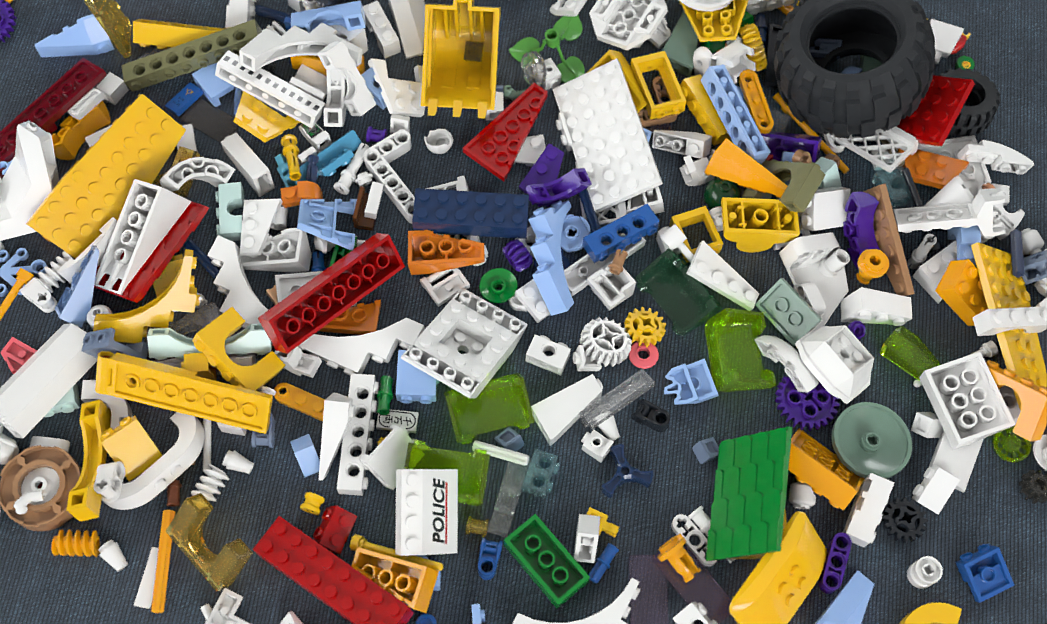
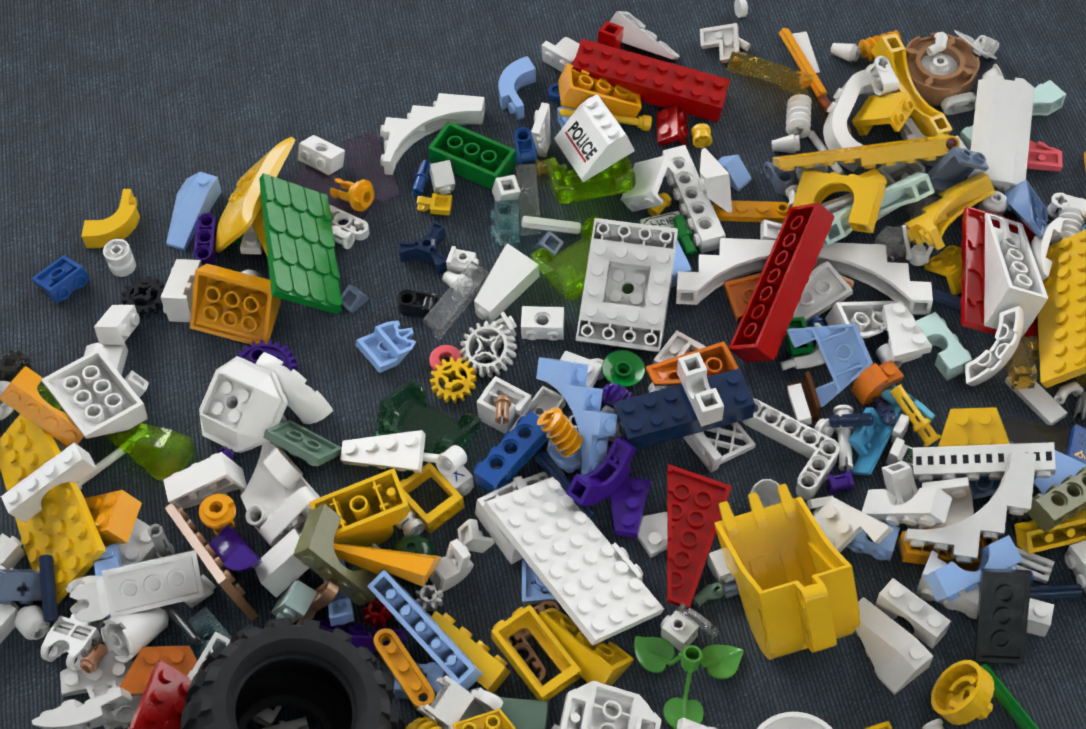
camera: 165 degrees right, 10 degrees down
(248, 164) = (952, 390): white slope -> none
(344, 164) = (851, 420): none -> dark blue axle
(458, 197) = (704, 400): none -> white arch
(468, 550) = (541, 130): none -> white wing
(528, 503) = (506, 188): none -> white brick
(579, 224) = (561, 431): none -> light orange piece
(673, 187) = (473, 538): none -> white panel
(683, 143) = (472, 598): white slope -> none
(734, 353) = (345, 383): clear neon green windscreen -> none
(871, 440) = (188, 348): sand green dish -> none

